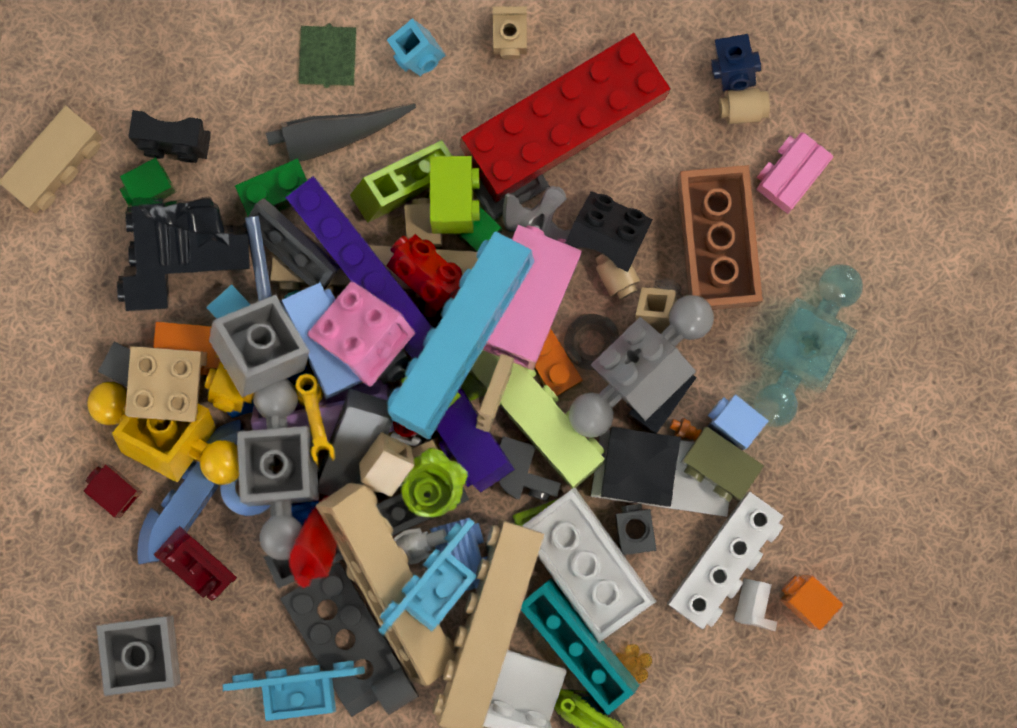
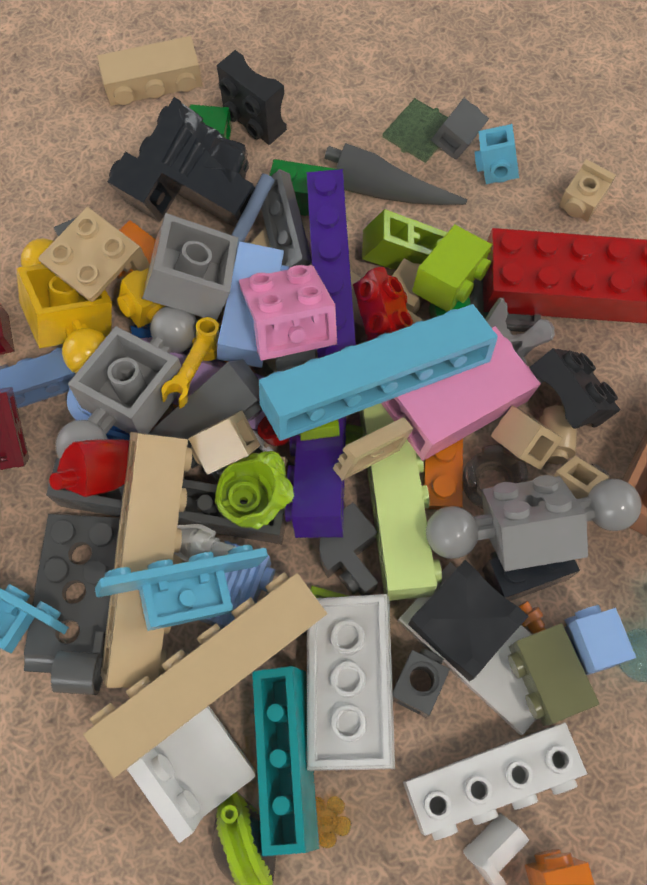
camera: 35 degrees right, 15 degrees down
(365, 39) = (460, 129): none -> dark grey brick
(596, 296) = (526, 437): none -> tan brick

